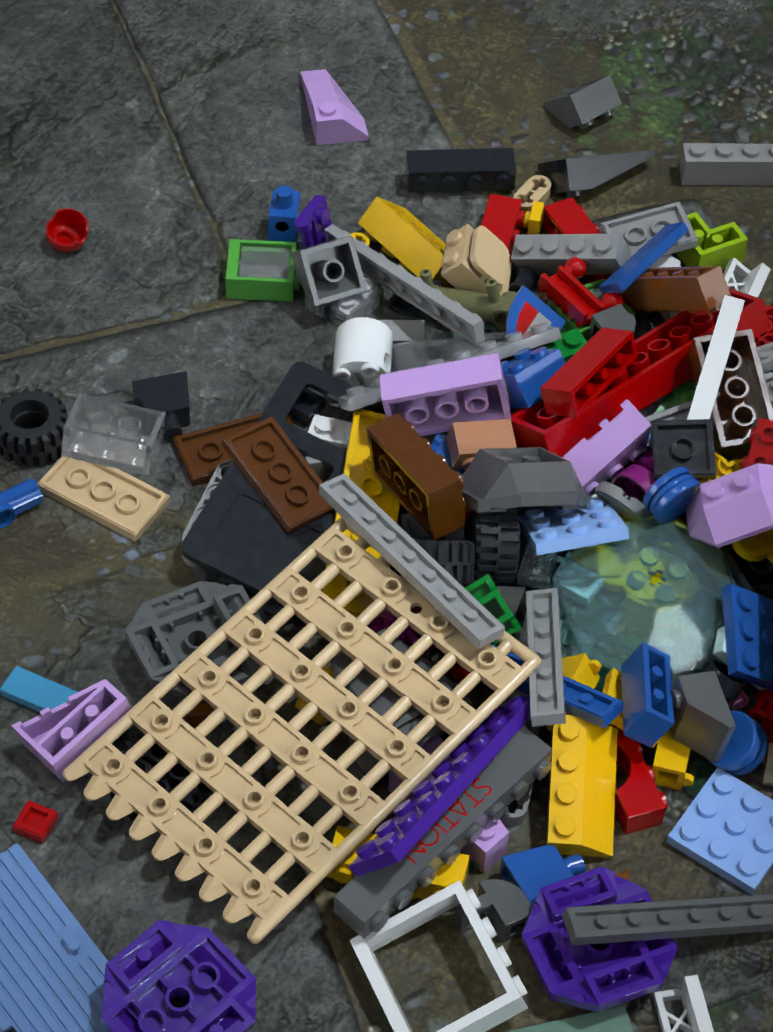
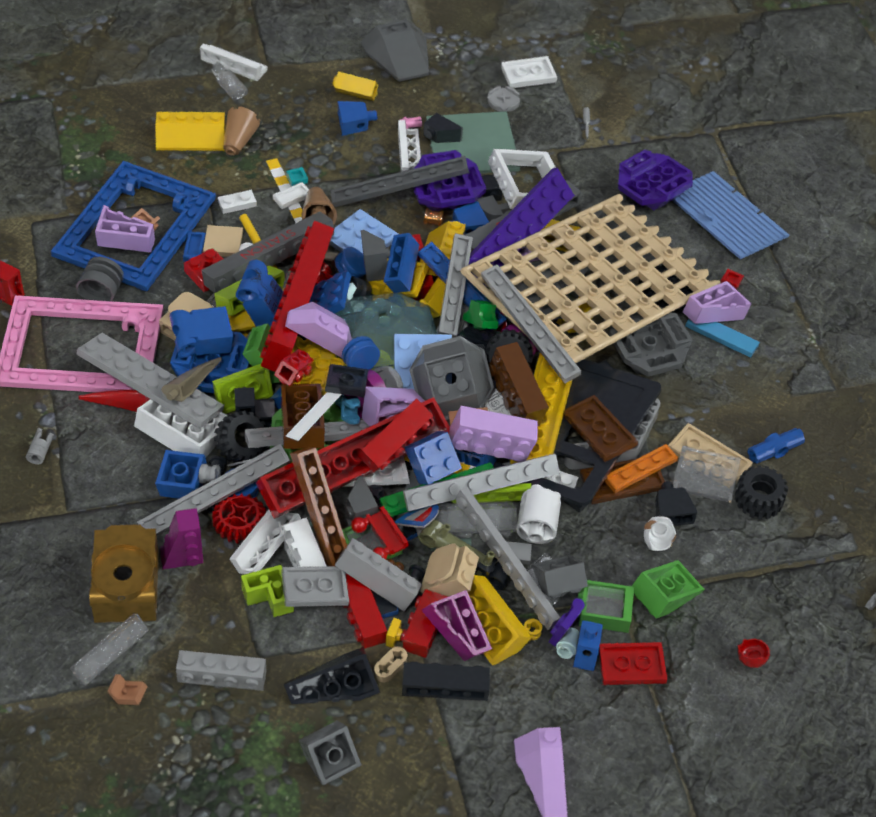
camera: 175 degrees left, 0 degrees up
(177, 298) = (666, 588): none -> bright green slope
(188, 356) = (659, 533): none -> white hair
(202, 454) = (640, 468): none -> orange tile
(225, 214) = (632, 663): none -> red plate
(450, 208) = (459, 625): none -> magenta wedge
(520, 965) = (492, 187): none -> black brick
(644, 258) = (329, 544): blue tile -> none

